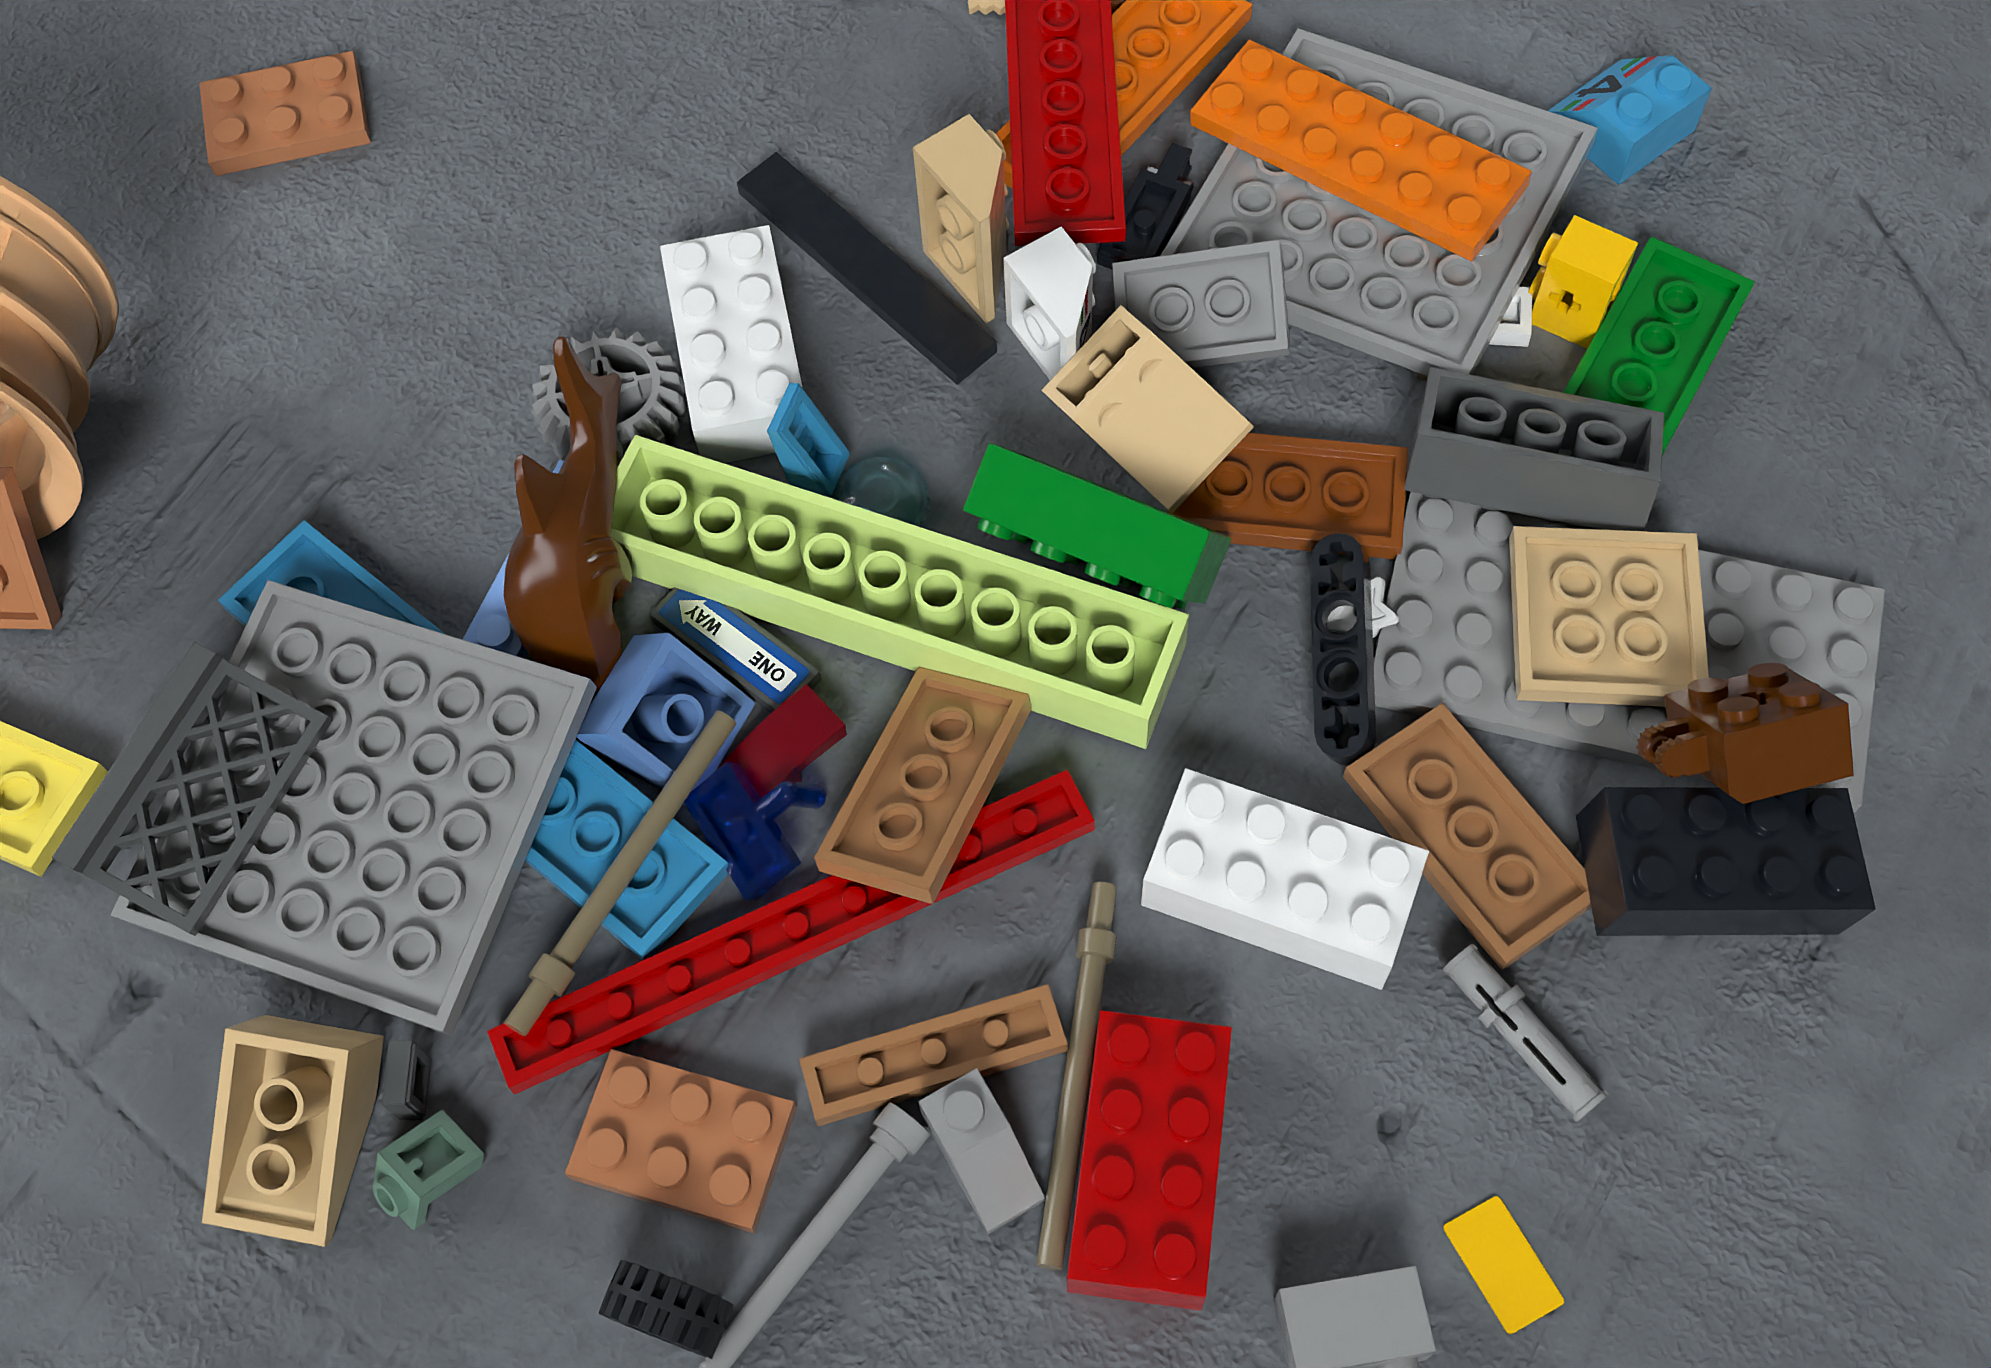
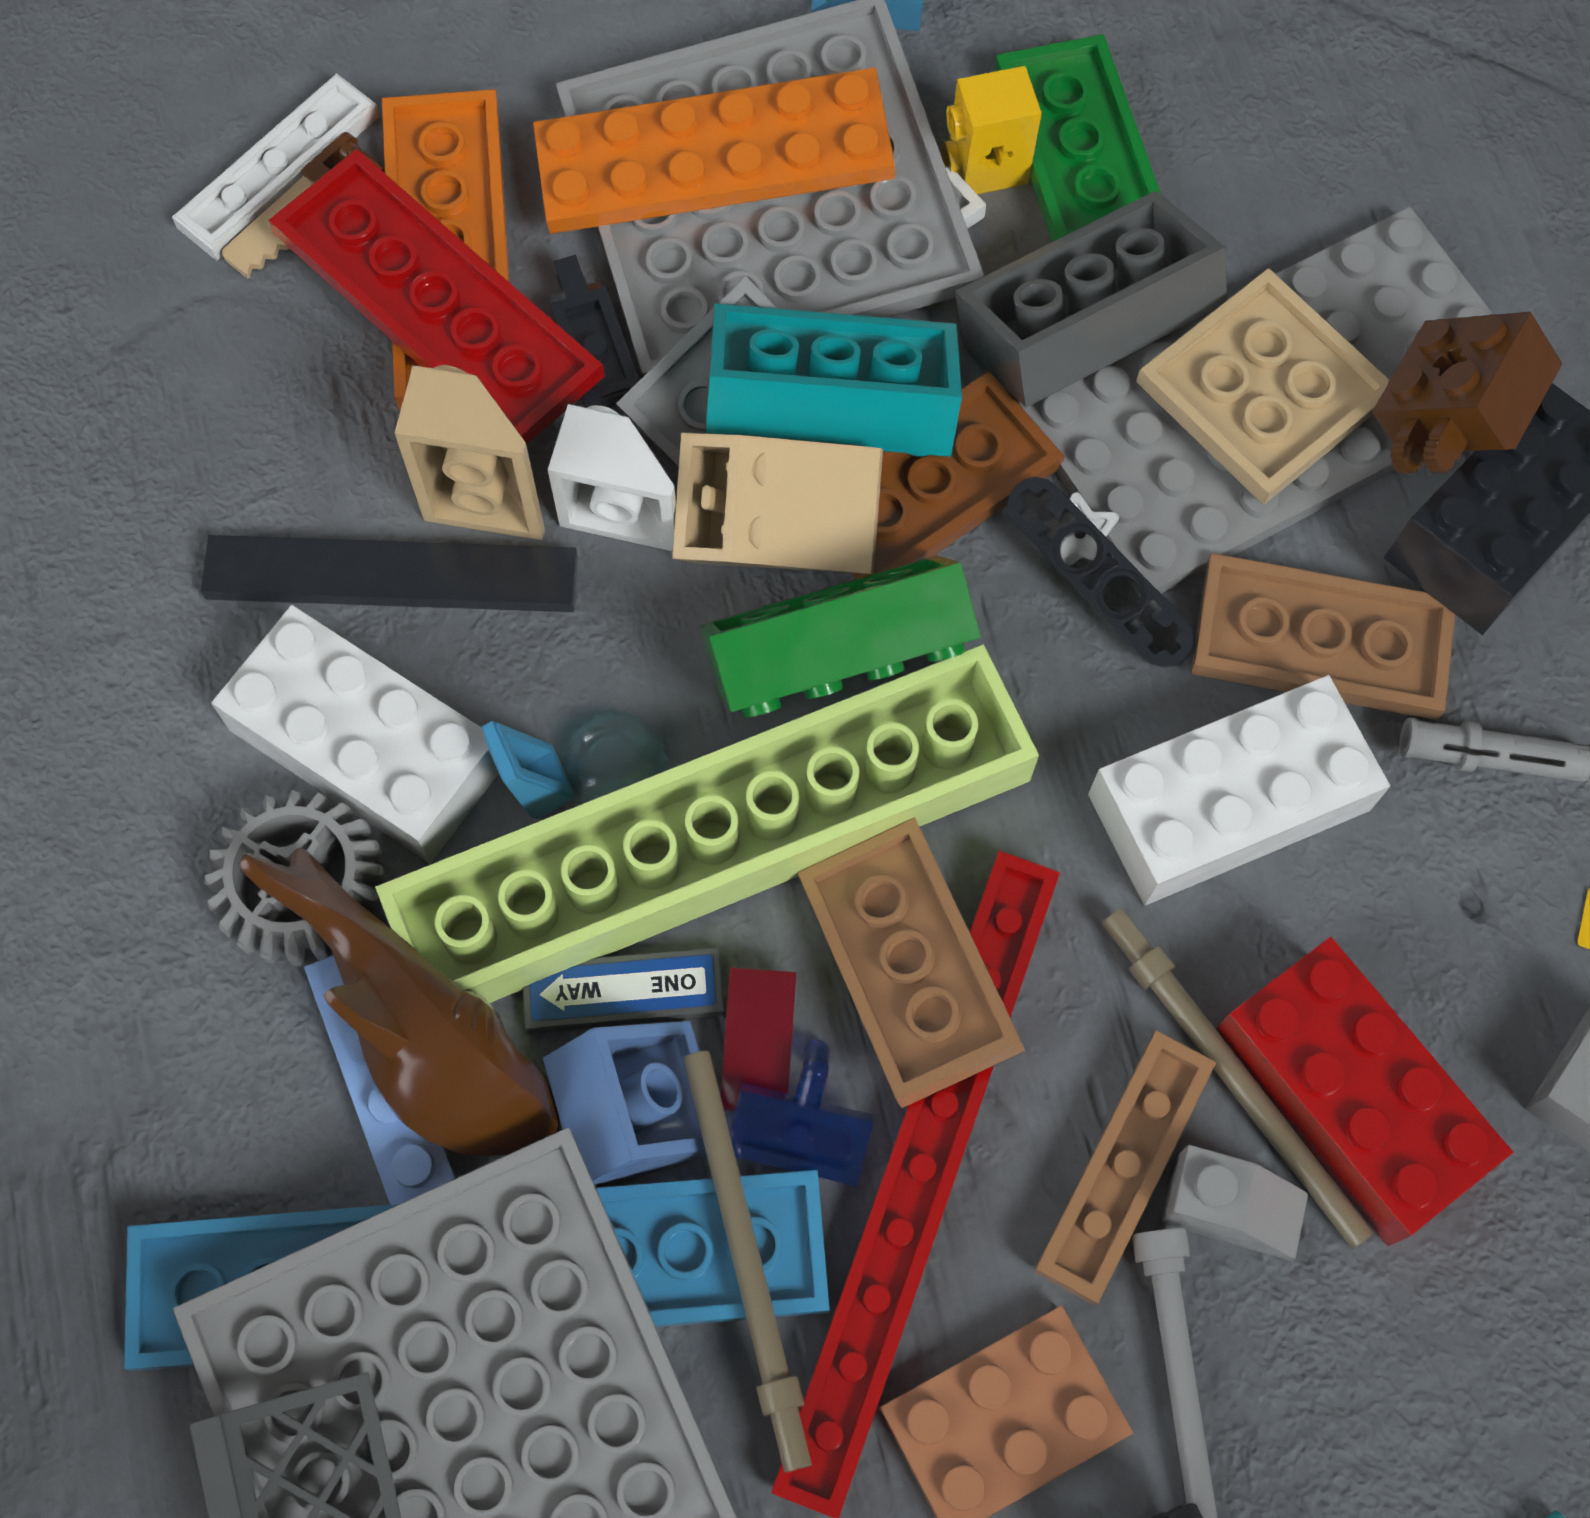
camera: 50 degrees left, 5 degrees up
(1271, 356) = (834, 379): none -> teal slope

